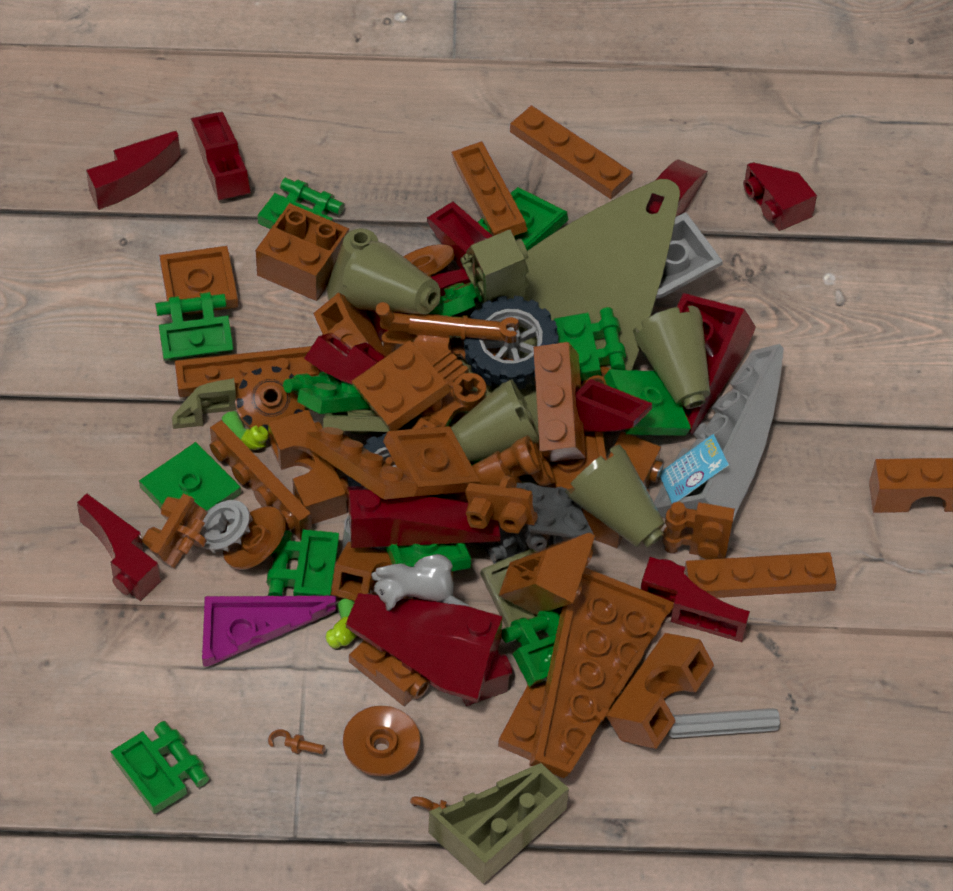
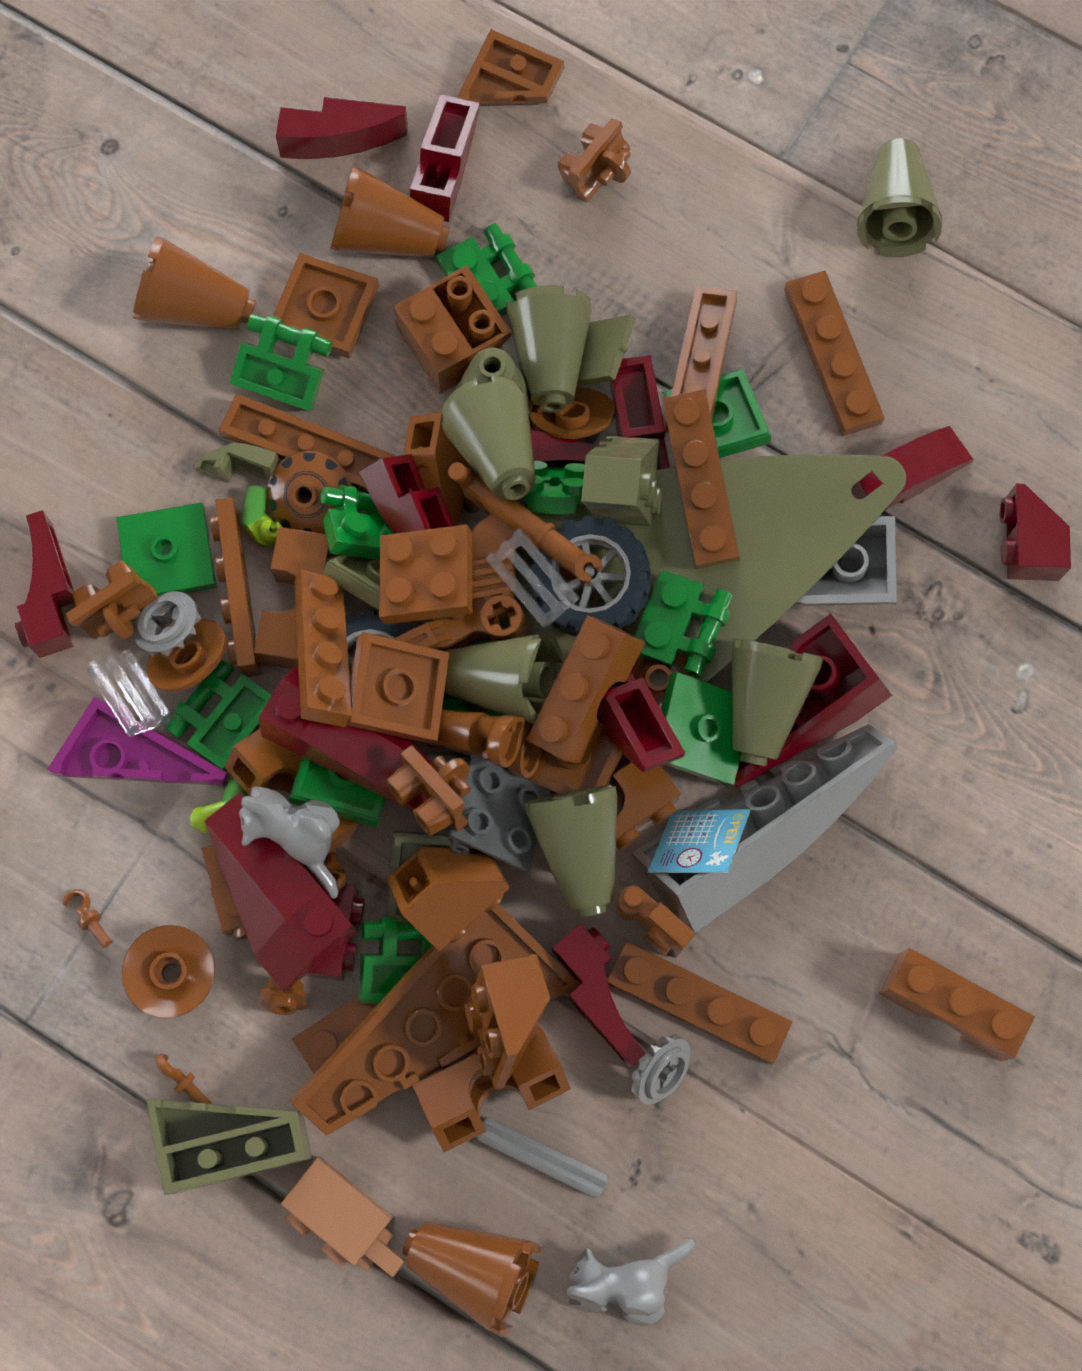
camera: 30 degrees right, 20 degrees up
(96, 312) = (189, 291): none -> dark orange cone
(206, 207) = (385, 221): none -> dark orange cone
(228, 581) = (153, 700): none -> clear tile
(232, 83) = (511, 73): none -> dark orange wing
(334, 108) = (600, 162): none -> dark orange hips
(377, 208) = (550, 342): none -> olive cone
(413, 218) = (605, 349): none -> olive piece
(474, 715) = (281, 1002): none -> dark orange plate
(481, 339) = (507, 549): none -> clear tile
(545, 253) = (701, 479): none -> dark orange plate
(555, 42) = (899, 202): none -> olive cone
(616, 828) = (343, 1218): none -> nougat hinge
(643, 618) = (506, 1013): none -> dark orange slope
(727, 806) = (475, 1270): none -> dark orange cone
(766, 619) = (661, 1069): none -> light grey gear
(838, 765) = (632, 1288): none -> light grey animal

